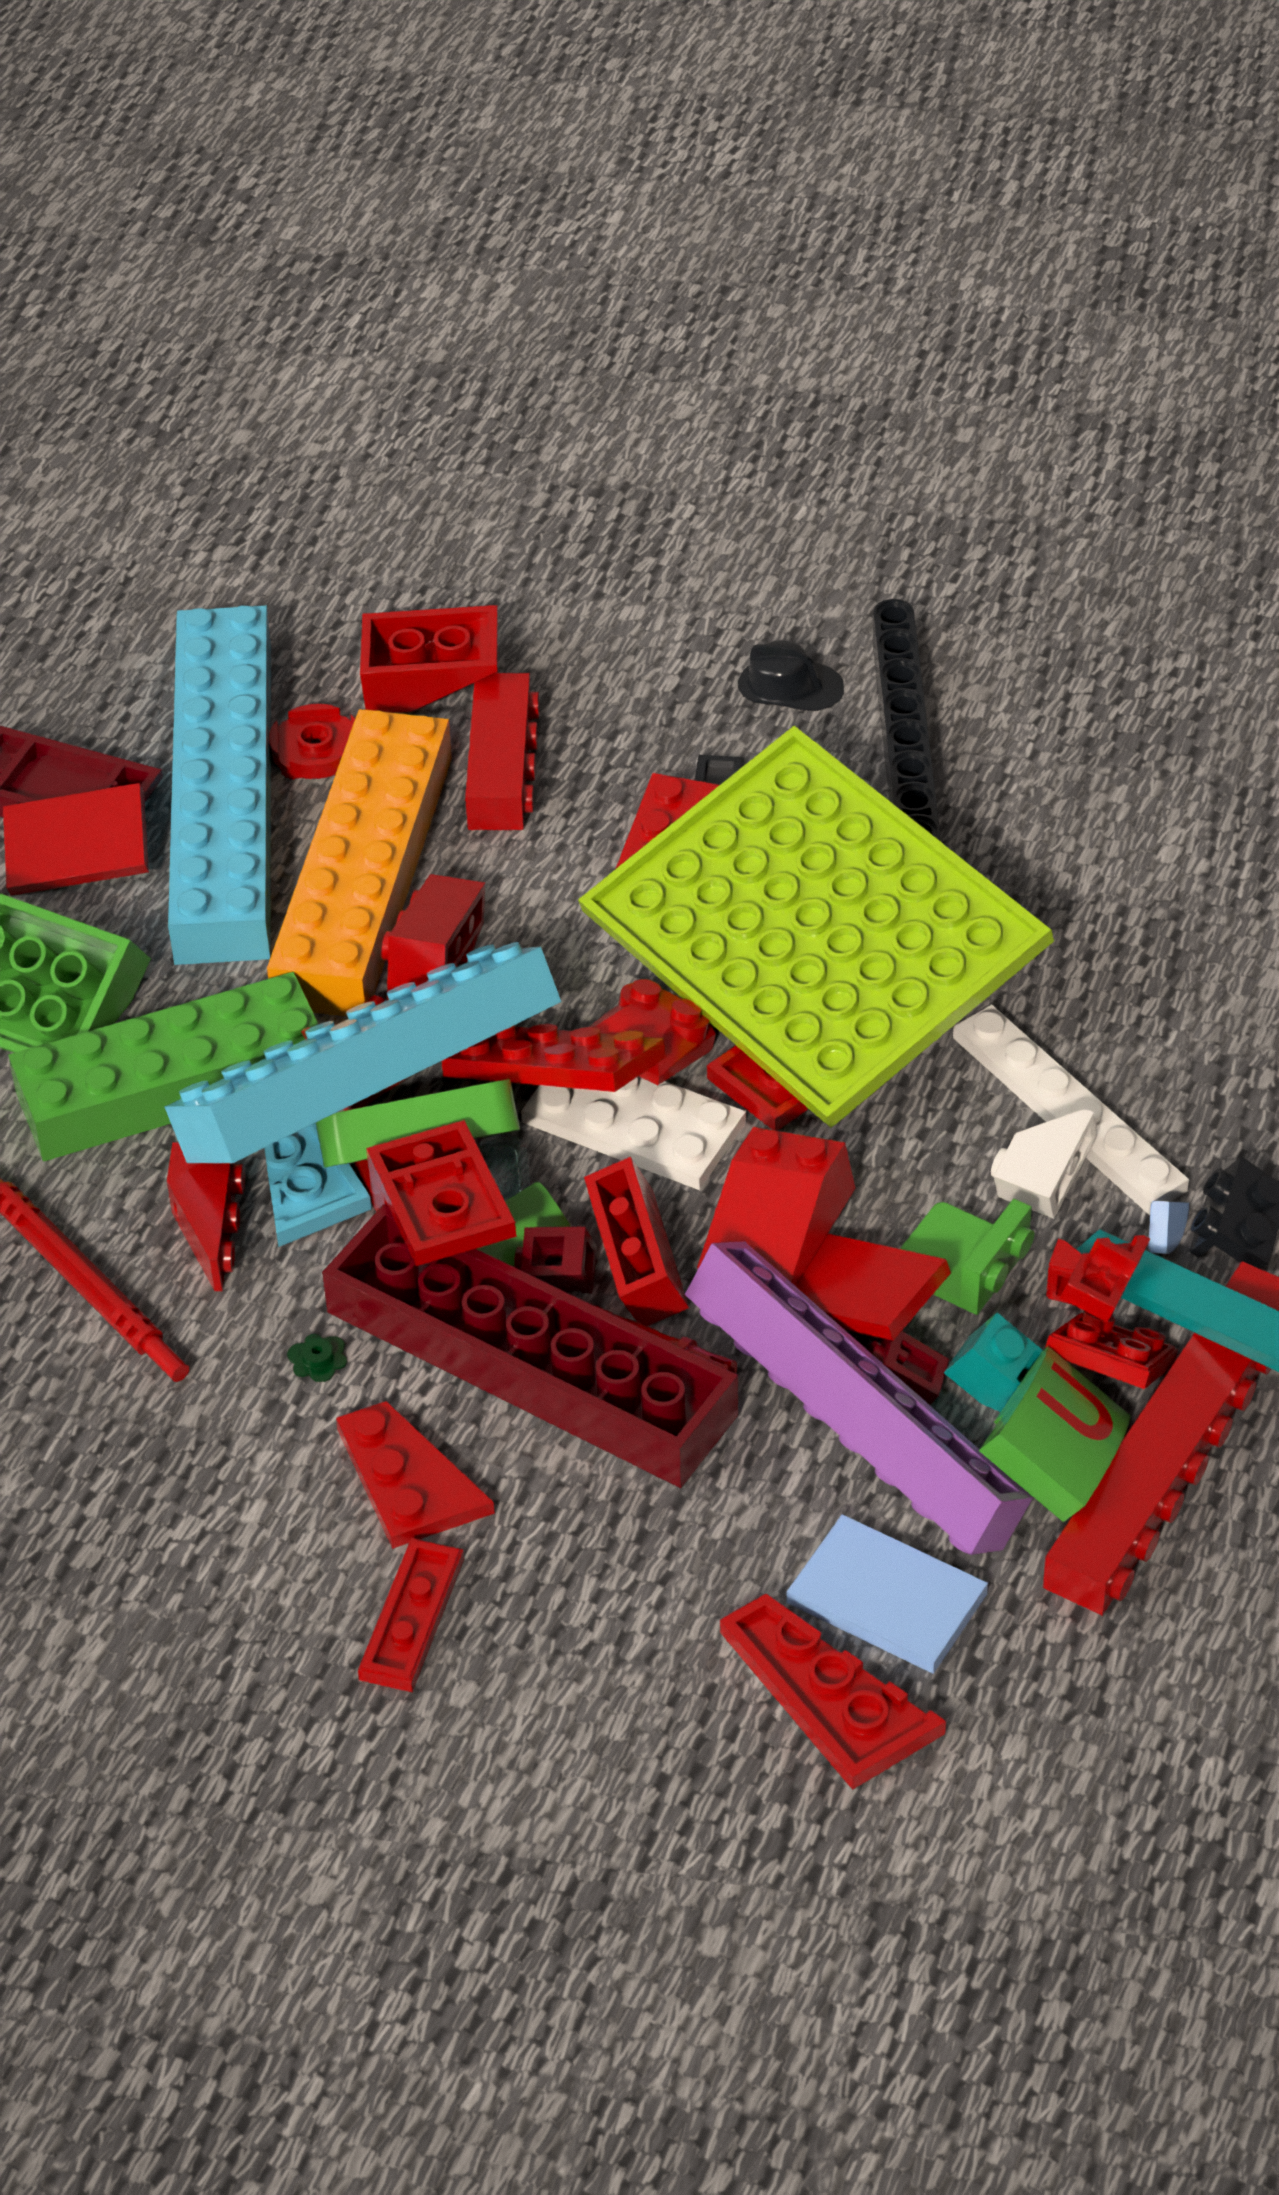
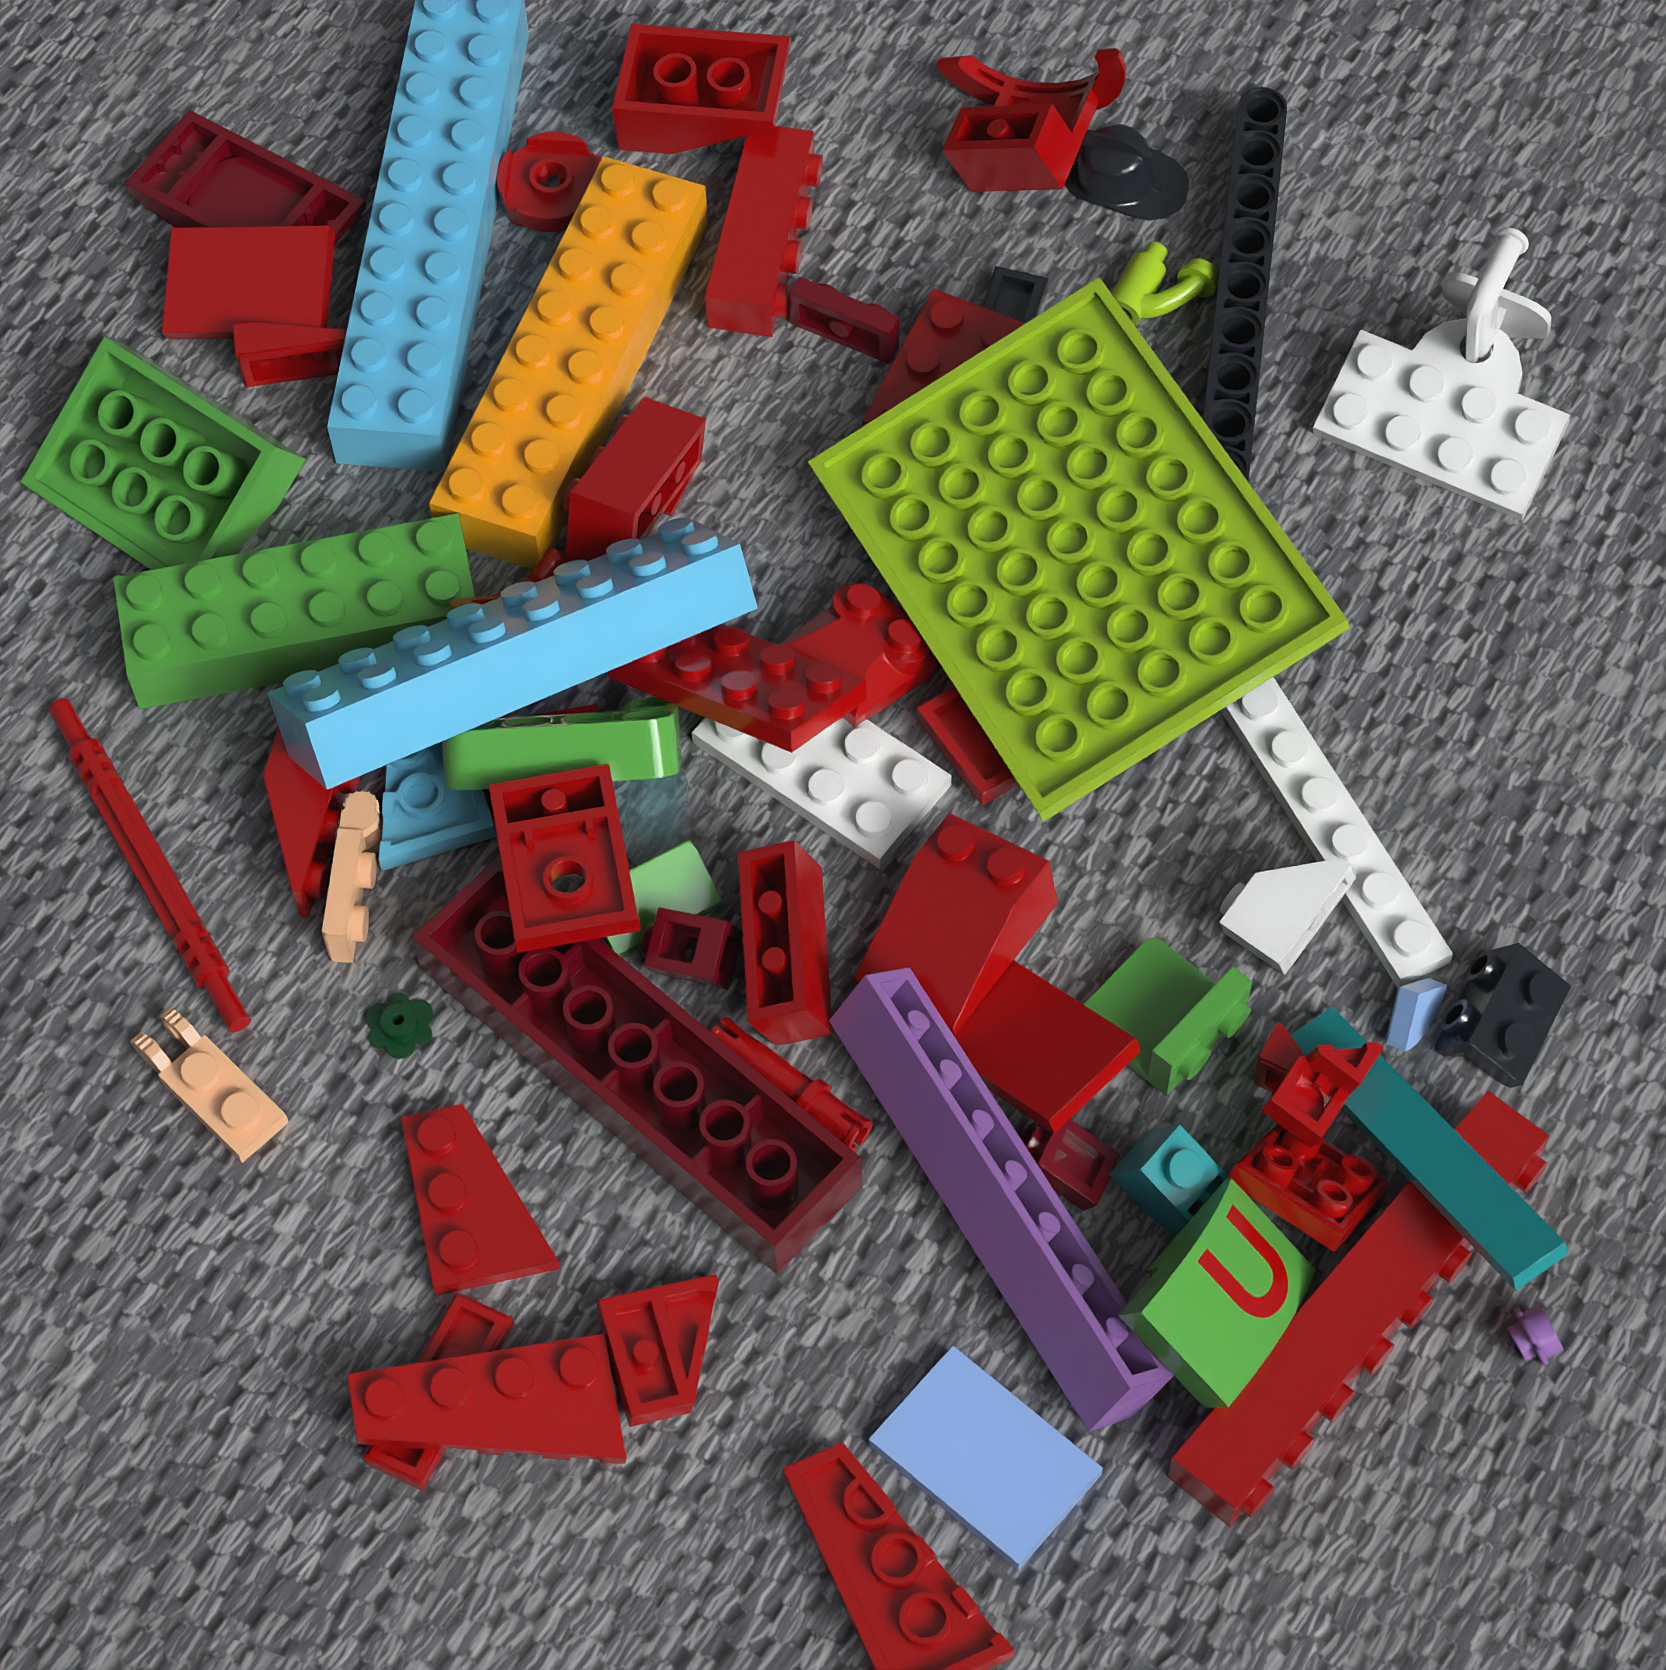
camera: 10 degrees right, 15 degrees up
(95, 881) = (286, 352): none -> red slope
(165, 1421) = (213, 1088): none -> light nougat hinge
(255, 1248) = (352, 871): none -> light nougat hinge
(481, 1604) = (514, 1400): none -> red wing
(582, 805) = (844, 319): none -> dark red plate
(592, 1551) = (658, 1346): none -> red wing
(702, 658) = (1032, 127): none -> red piece
(865, 741) = (1144, 274): none -> lime plant
(1100, 806) = (1450, 414): none -> white plate

